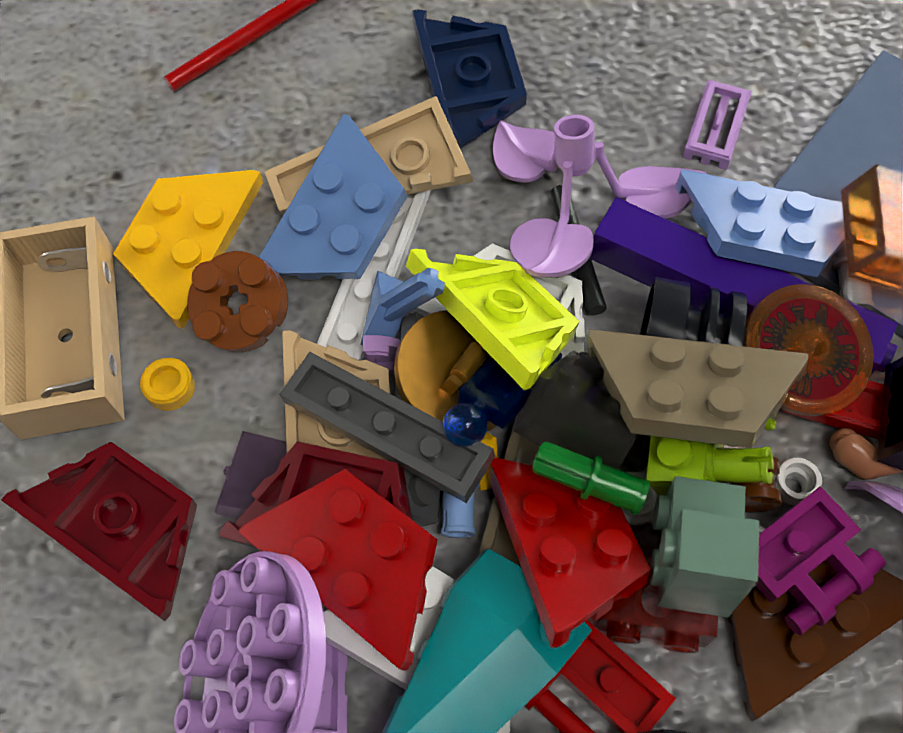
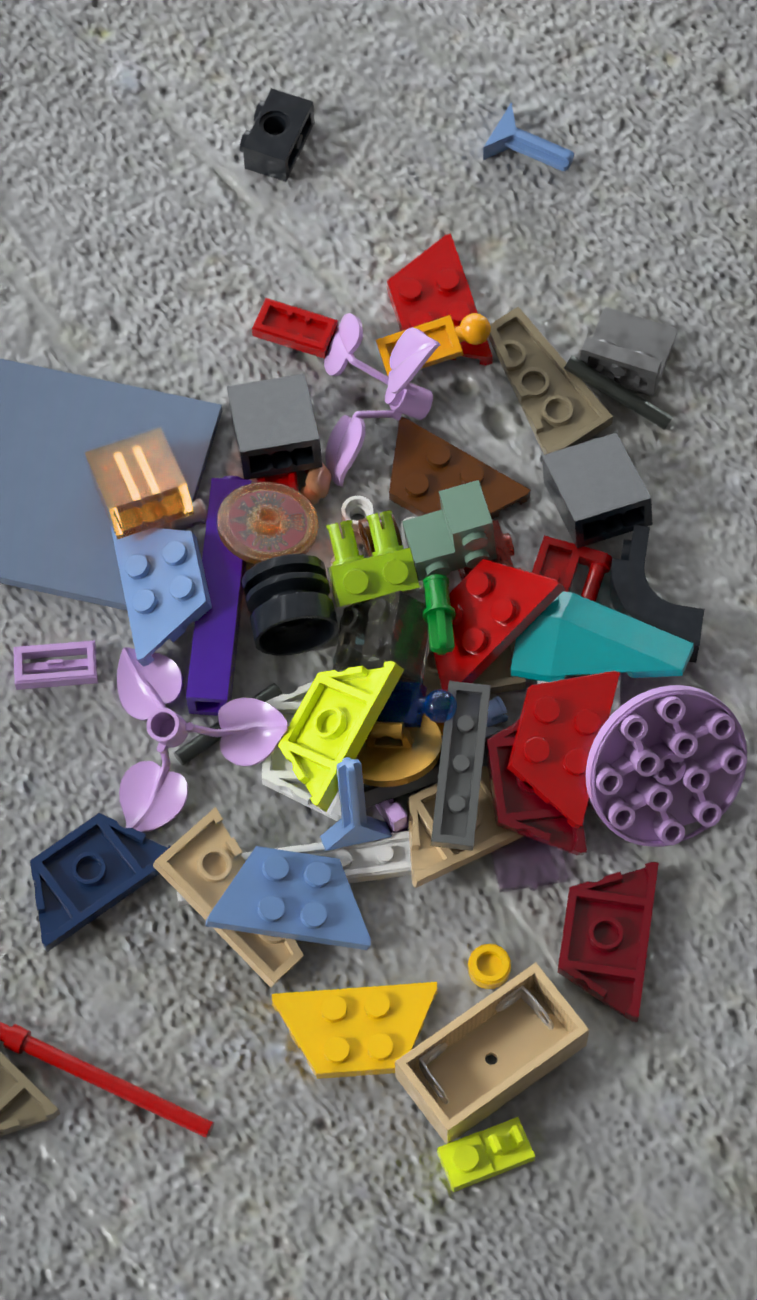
camera: 115 degrees left, 0 degrees up
(213, 286) = (392, 962): dark orange plate -> none
(695, 386) = (350, 568): dark tan wing -> none
(798, 544) = (410, 491): magenta plate -> none

